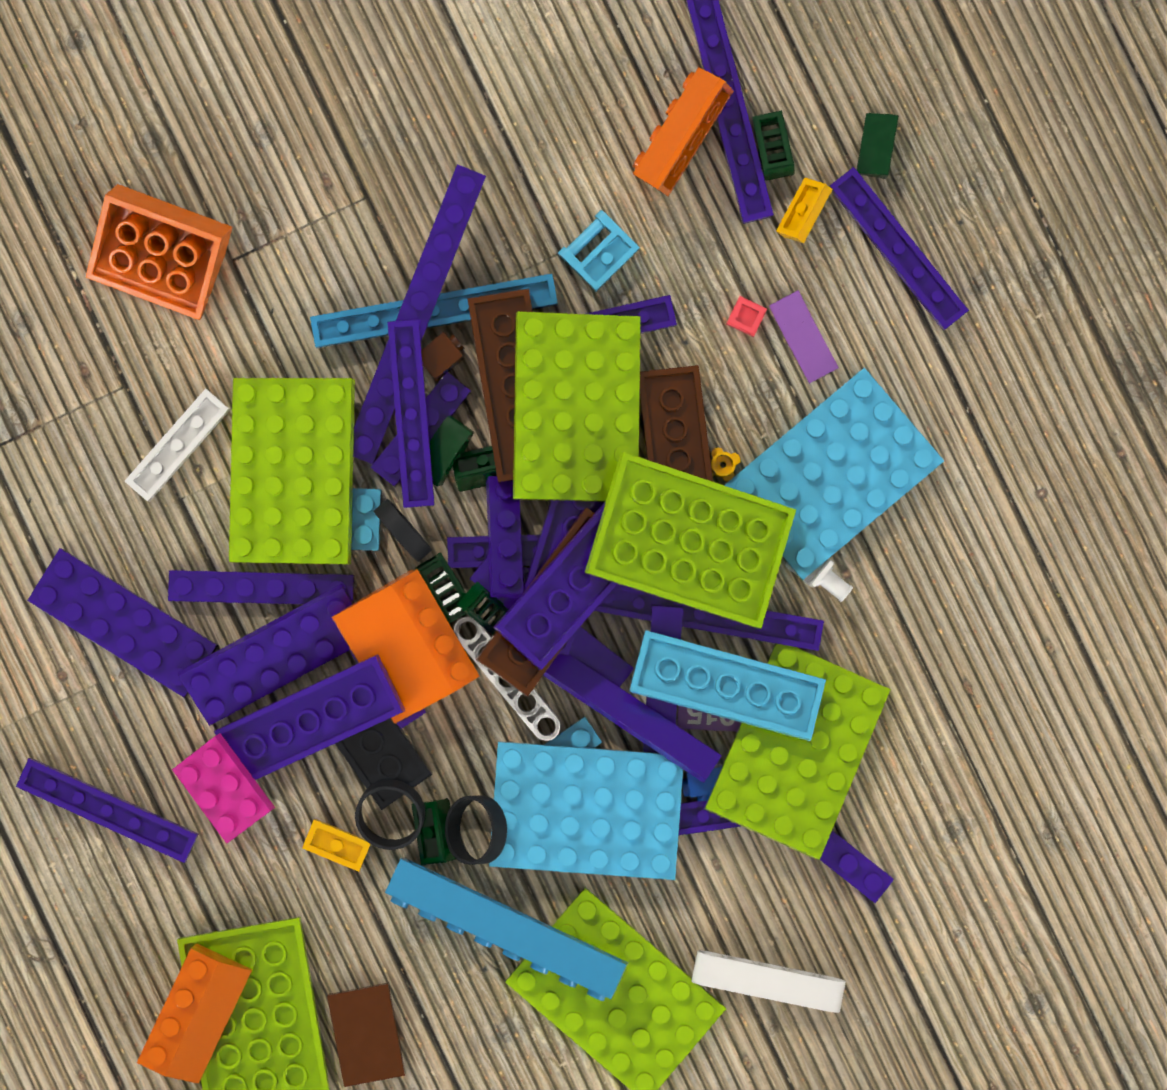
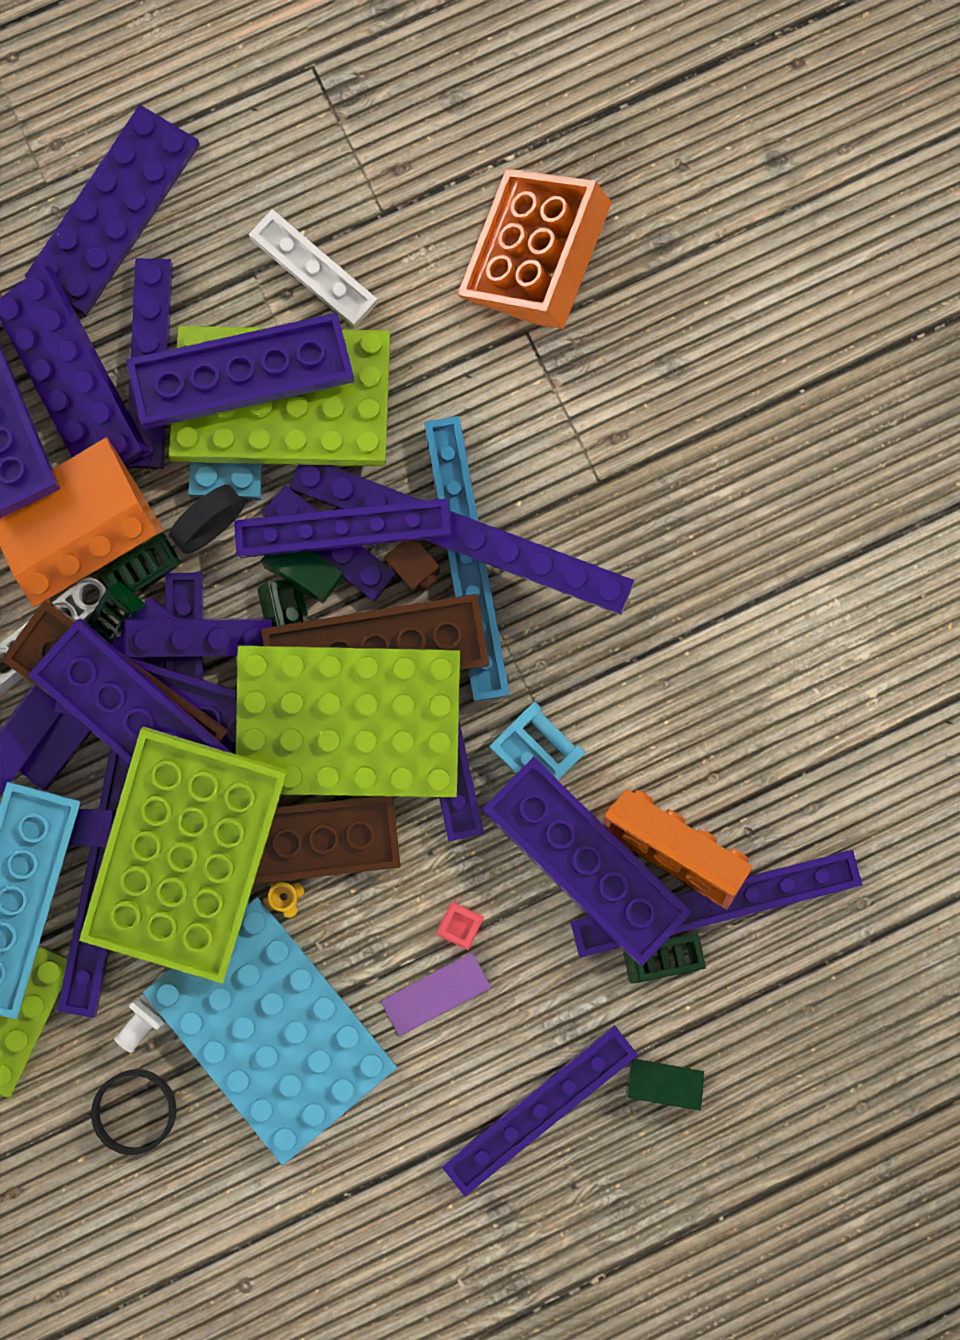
camera: 80 degrees right, 5 degrees down
(273, 503) = (239, 371): none -> dark purple plate
(693, 207) = (587, 861): none -> dark purple plate
(804, 210) = (585, 995): yellow plate -> none
(932, 586) = (97, 1124): none -> black tyre

